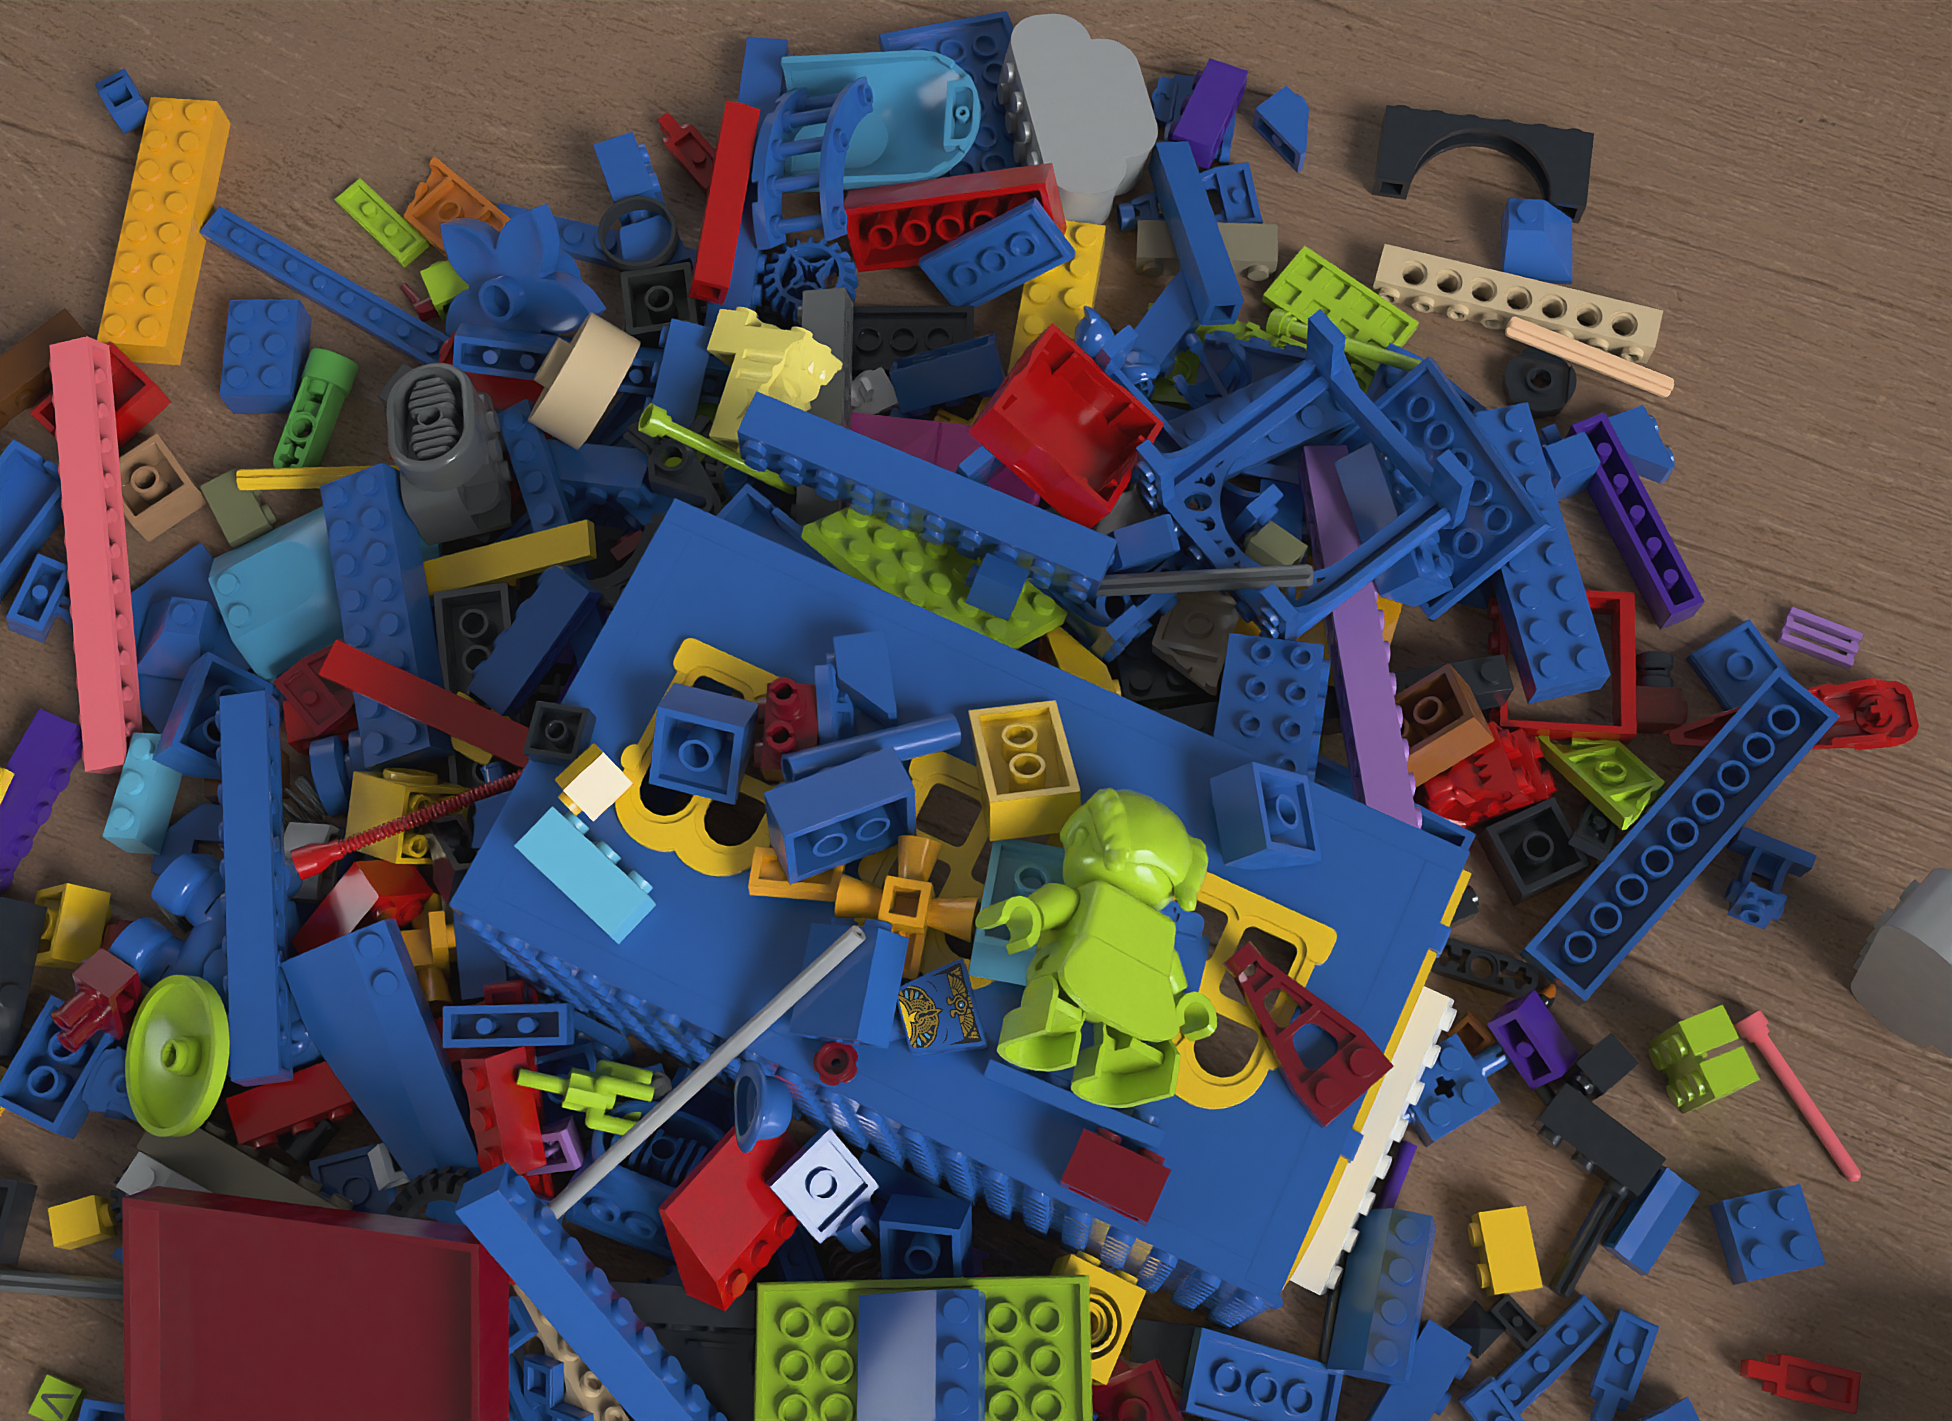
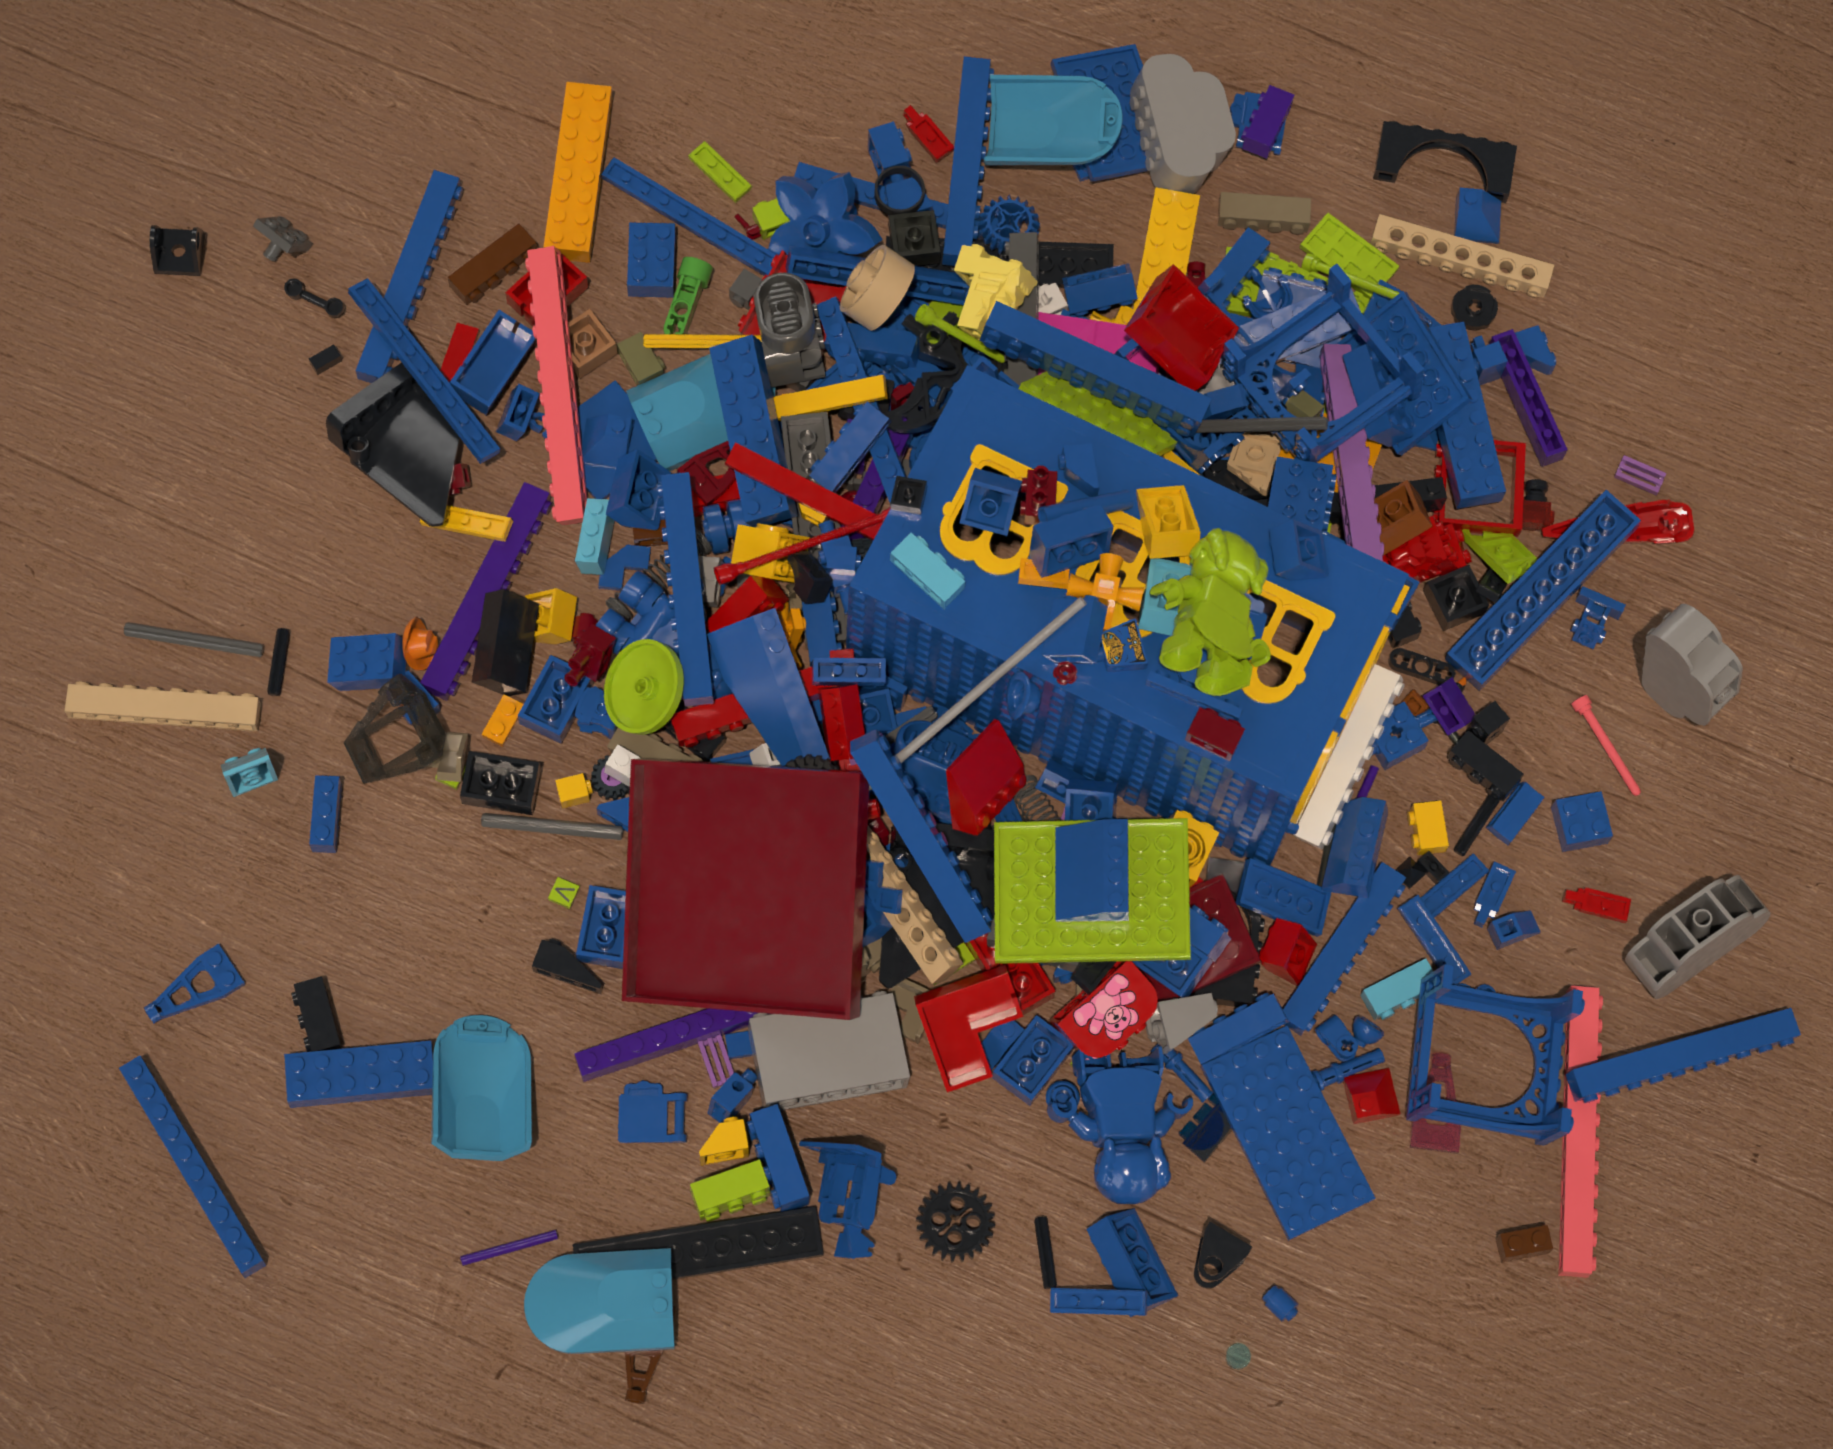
camera: 10 degrees left, 0 degrees up
(123, 101) = (545, 82): blue brick -> none
(447, 198) = (766, 163): orange wing -> none
(591, 783) = (931, 520): brick -> none
(596, 1091) = (898, 712): lime plant -> none
(682, 370) = (933, 282): blue brick -> none
(724, 203) = (956, 171): red brick -> none
(775, 143) = (988, 138): blue fence -> none
(828, 1192) = (1035, 774): plate -> none
(833, 707) = (1064, 483): blue tile -> none
(908, 220) = (1103, 188): red brick -> none
(995, 586) = (1137, 423): blue brick -> none
(997, 256) = (1131, 214): blue tile -> none
(1139, 366) = (1196, 271): blue animal -> none
(1195, 234) = (1258, 203): blue brick -> none
(1234, 190) = (1283, 174): blue plate -> none
(1284, 125) = (1317, 131): blue slope -> none
(1340, 1078) = (1334, 689): dark red plate -> none
(1589, 357) = (1506, 292): light nougat axle -> none
(1681, 1054) = (1547, 728): lime piece -> none
(1735, 665) = (1585, 487): blue tile -> none

